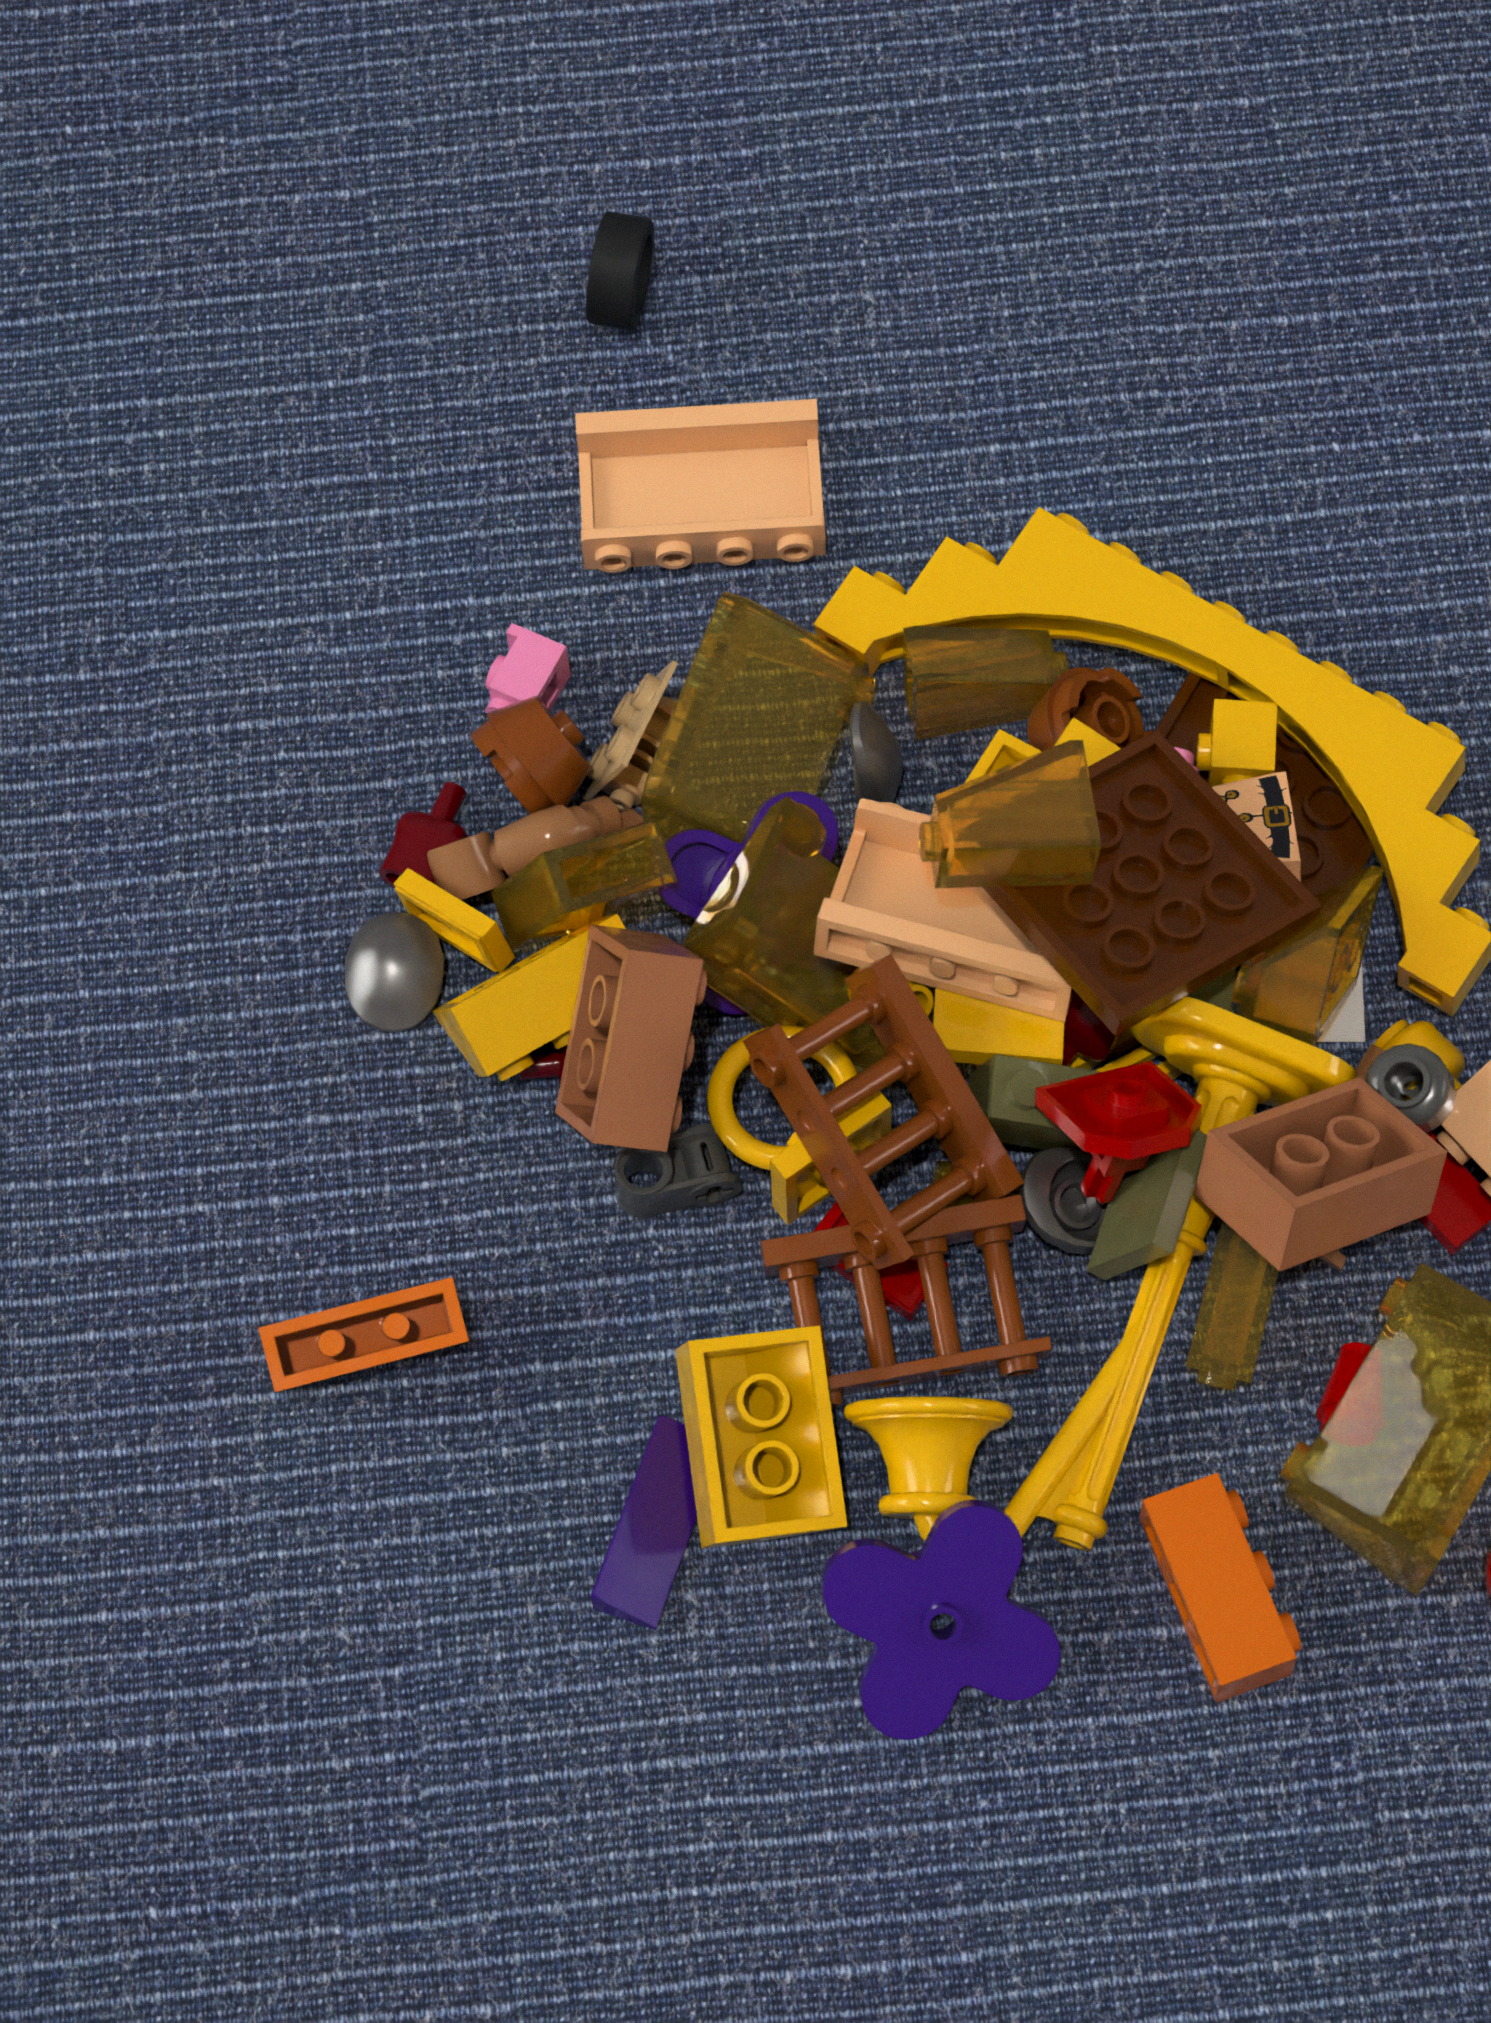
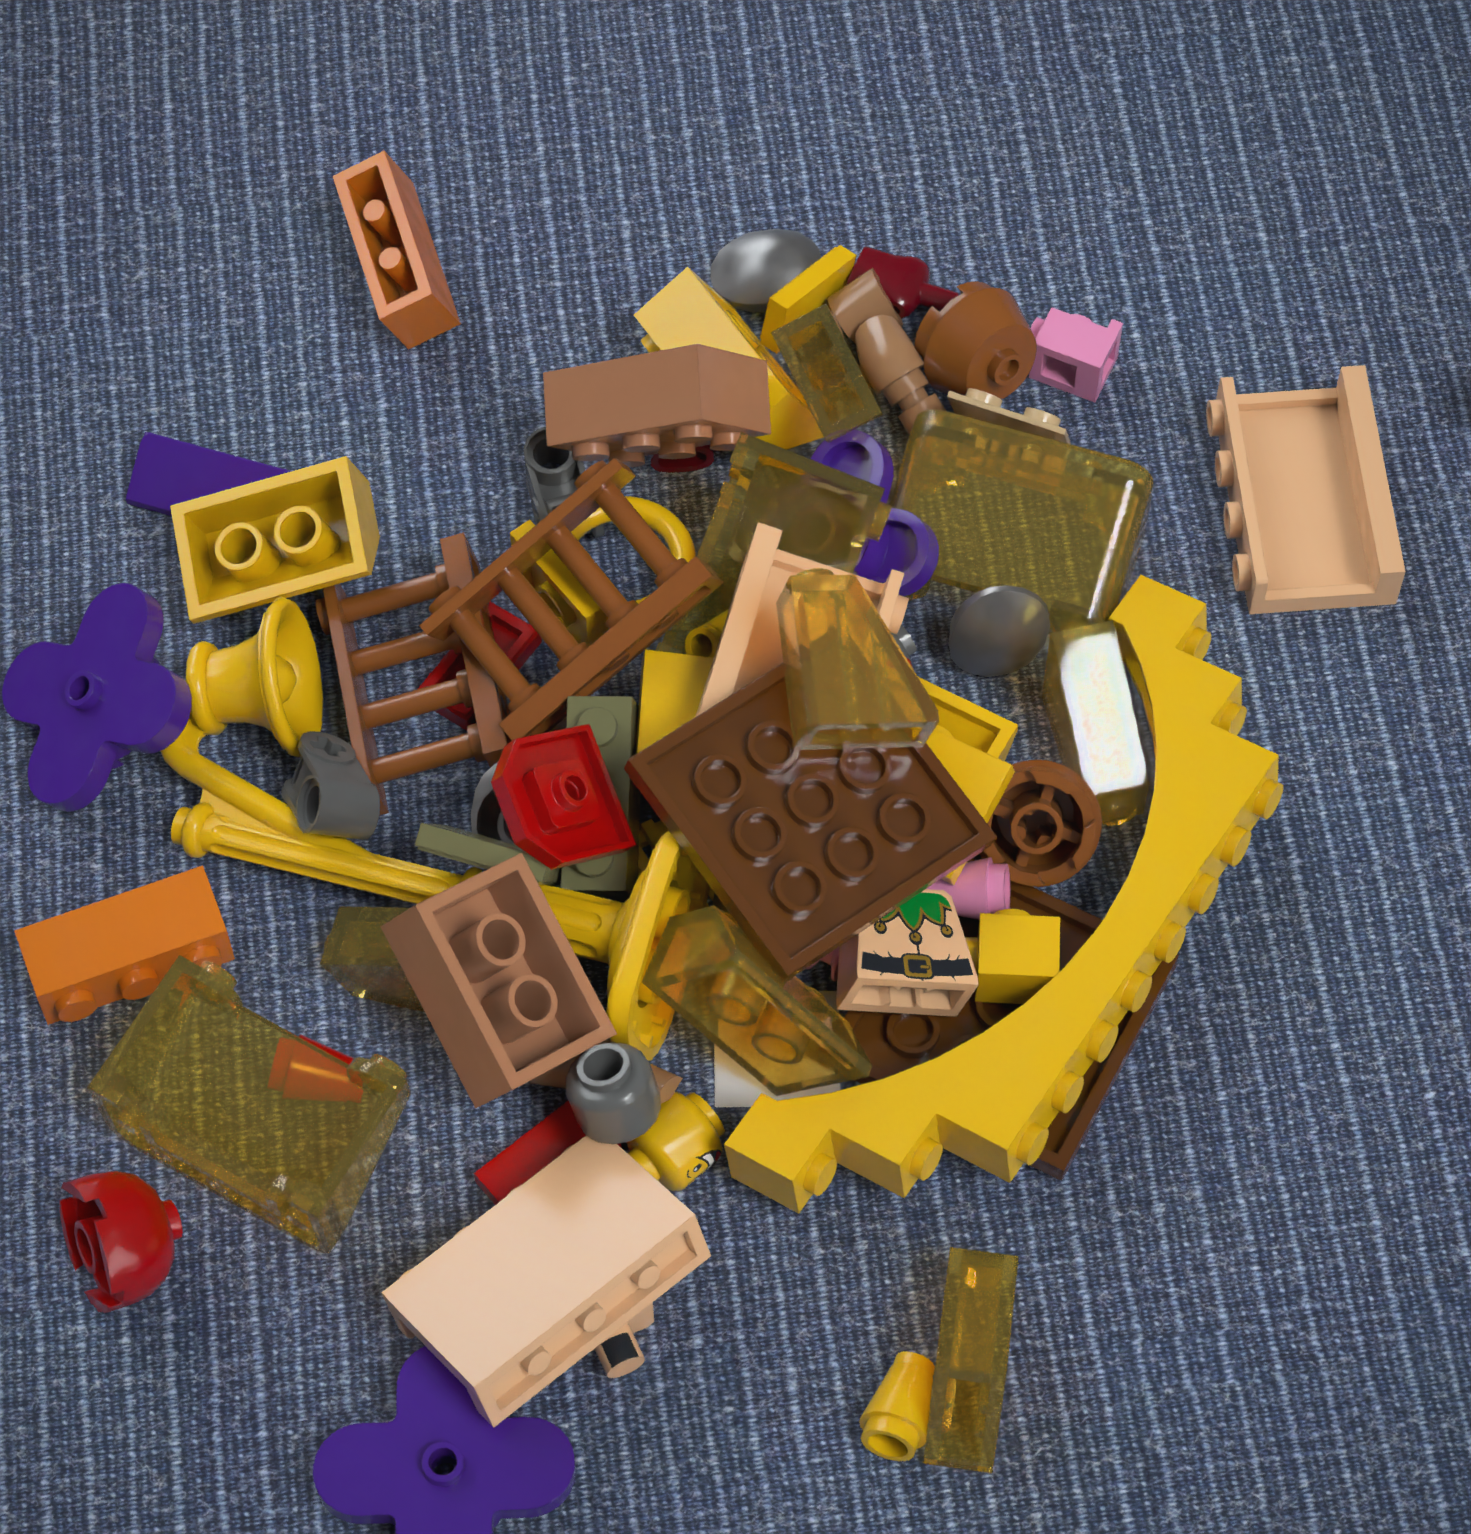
camera: 85 degrees right, 5 degrees down
(1062, 1374) = (331, 790): none -> dark grey piece

